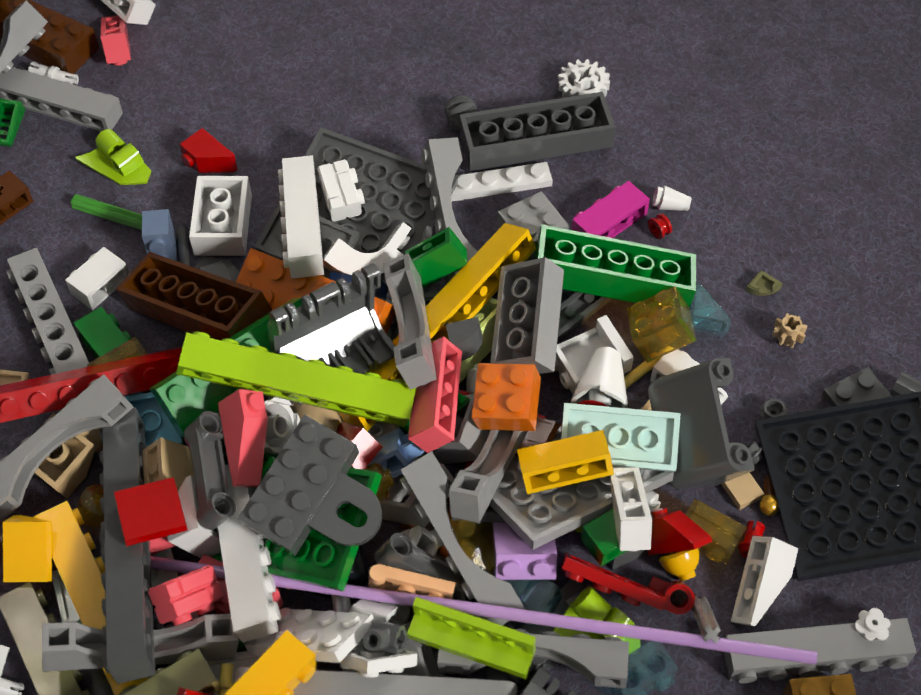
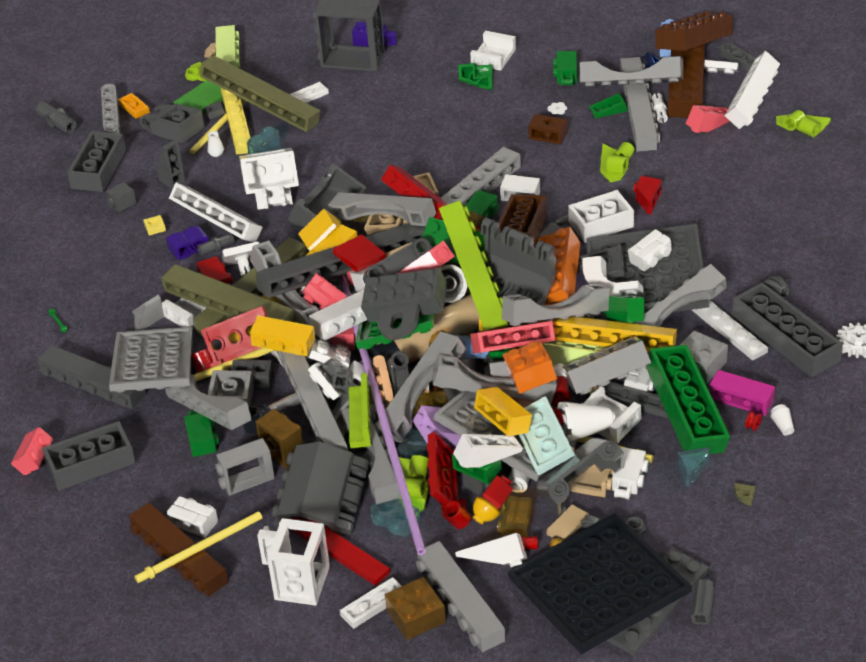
camera: 70 degrees right, 15 degrees down
(107, 211) = (574, 179): bright green axle -> none
(159, 233) = (561, 194): sand blue brick -> none
(300, 217) = (605, 235): white brick -> none
(365, 442) = (459, 323): slope -> none
(466, 336) = (568, 340): dark grey brick -> none
(661, 324) = (655, 435): clear yellow brick -> none
(705, 619) = (433, 511): light grey axle -> none
(789, 330) = (709, 514): tan gear -> none
(870, 631) = (488, 610): white plant -> none

